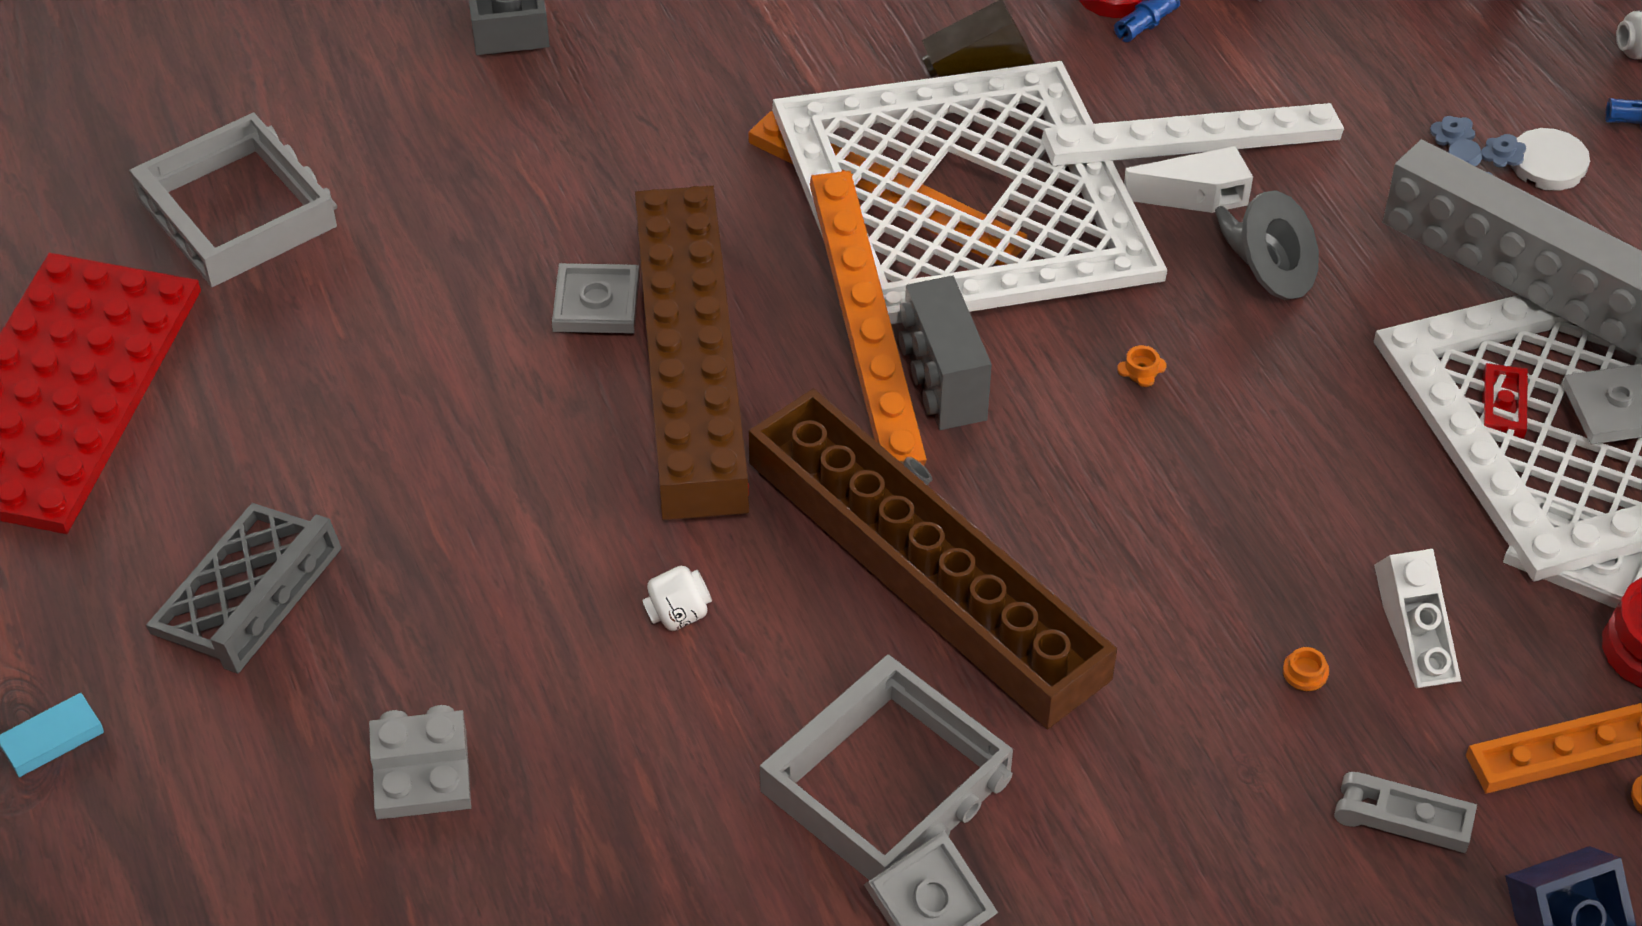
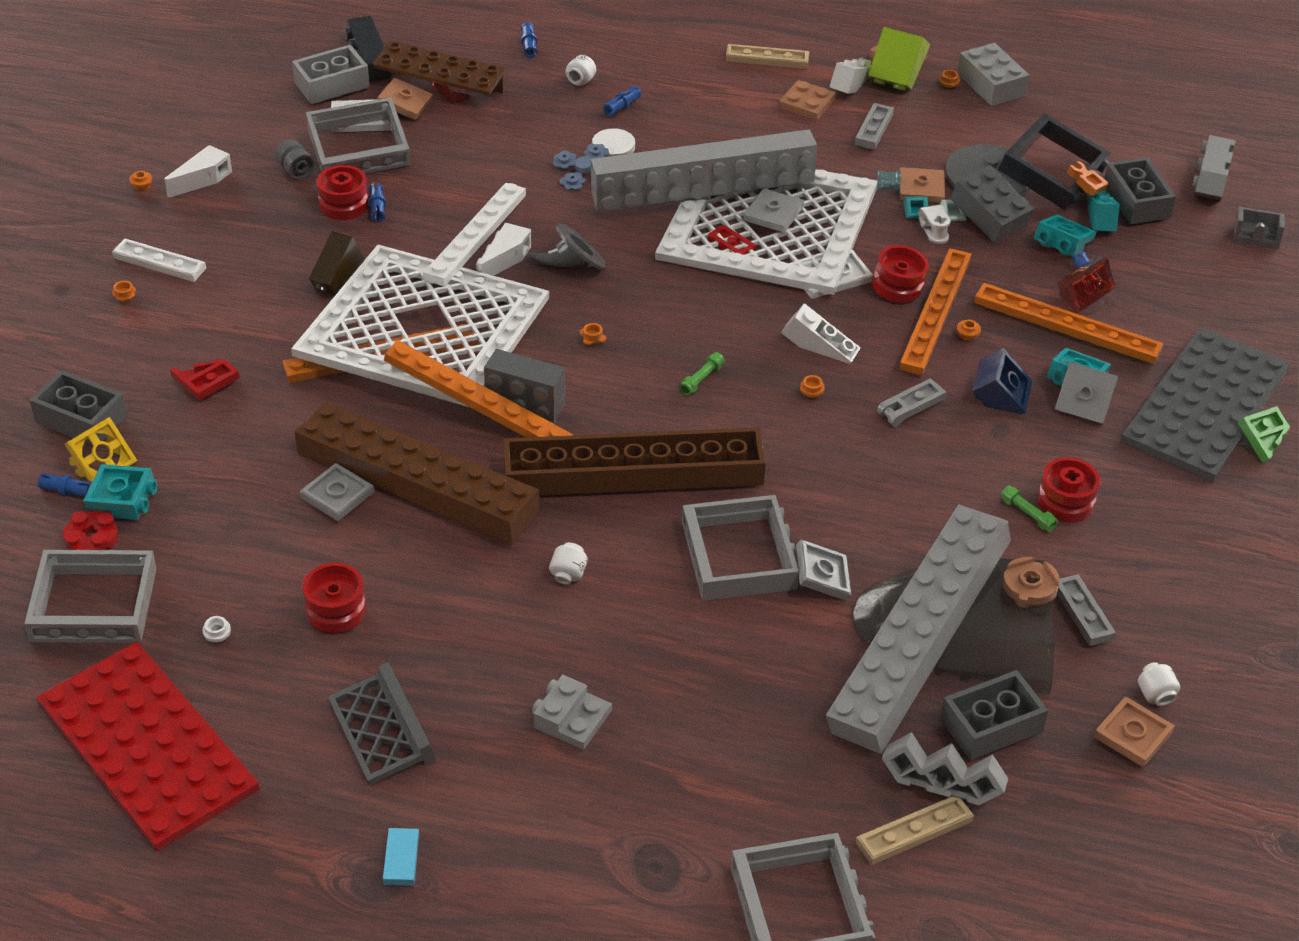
camera: 55 degrees left, 5 degrees down
(276, 334) = (216, 629): none -> white plate
(341, 120) = (82, 523): none -> red plate
(389, 70) = (64, 484): none -> blue pin
(402, 403) = (334, 597): none -> red wheel
(412, 116) = (121, 490): none -> teal plate
(424, 56) = (115, 443): none -> yellow piece
(672, 67) = (206, 377): none -> red wing
(1231, 526) = (690, 384): none -> bright green bar

